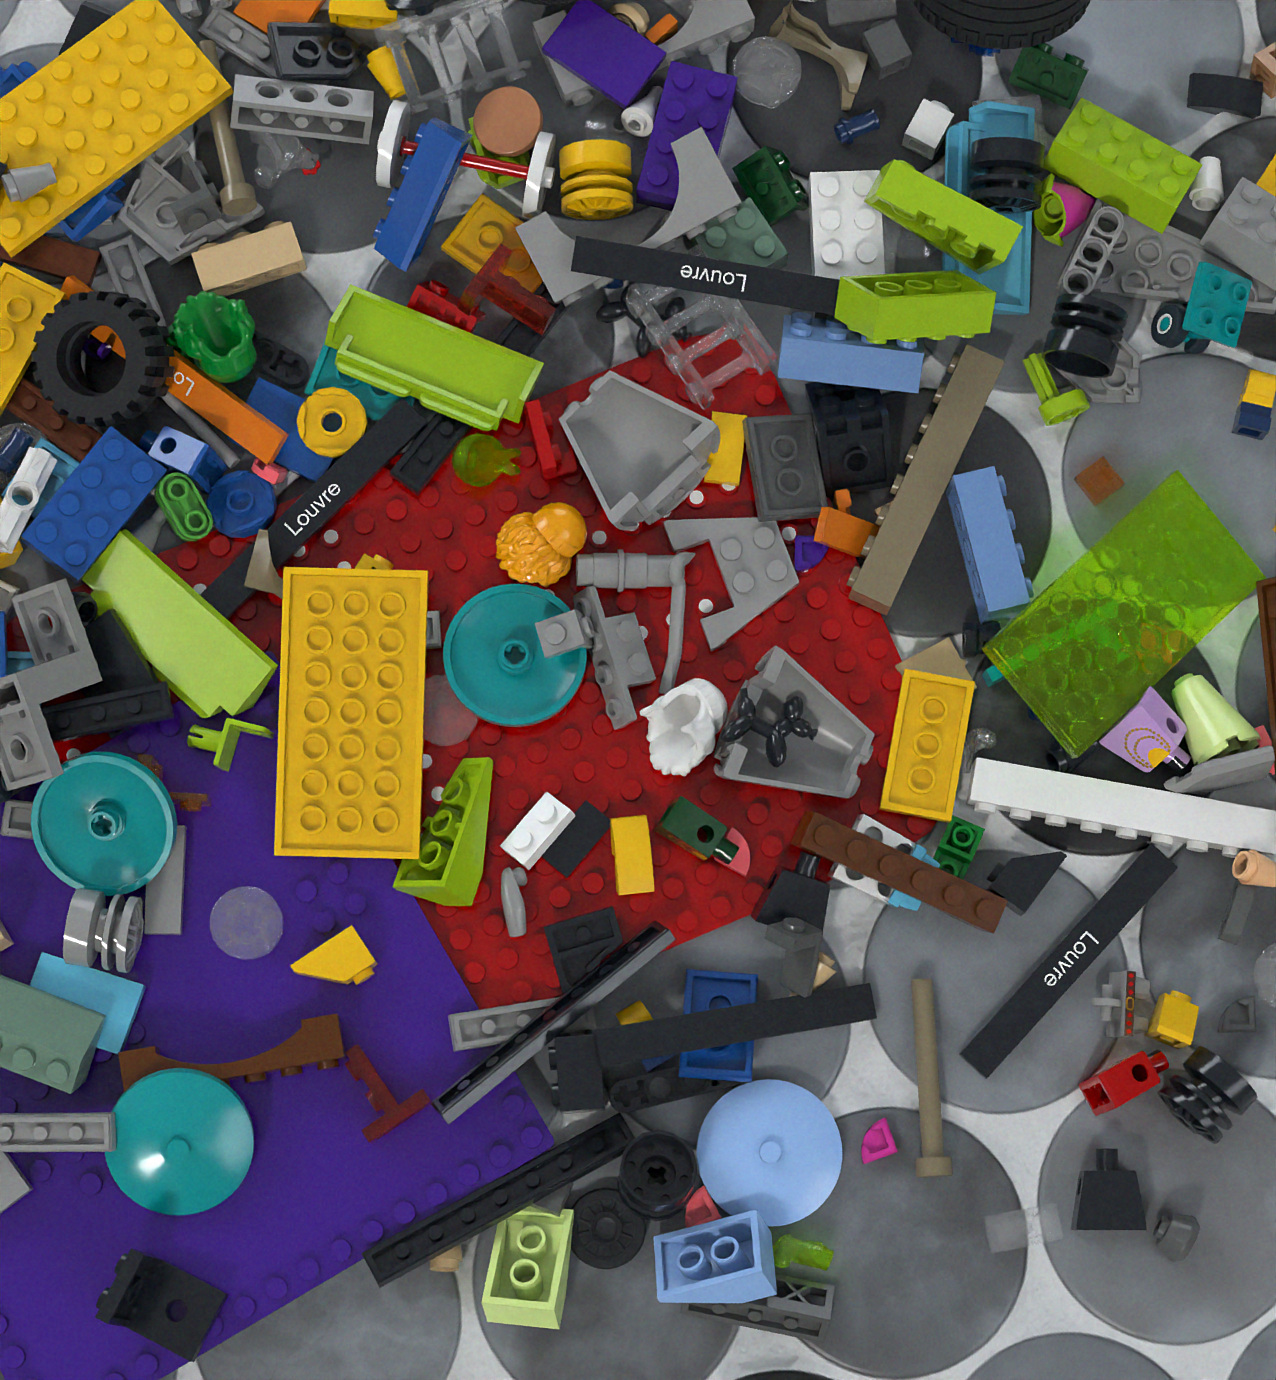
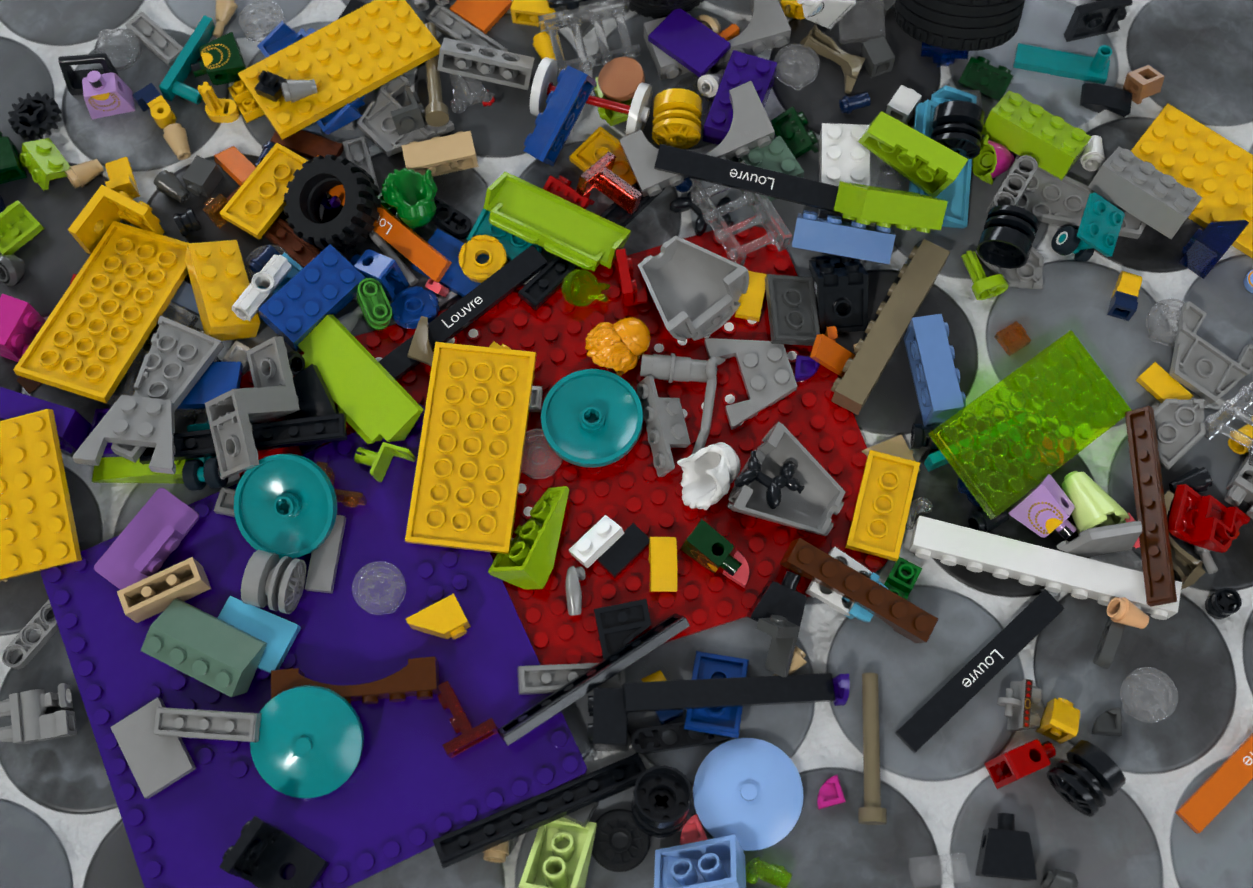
camera: 10 degrees right, 10 degrees down
(314, 51) = (498, 32): black tile -> none
(565, 633) = (628, 403): light grey bracket -> none
(884, 1004) = (841, 689): none -> dark purple tile
(1023, 879) = (950, 606): black slope -> none
(1161, 37) = (1064, 63): none -> teal piece

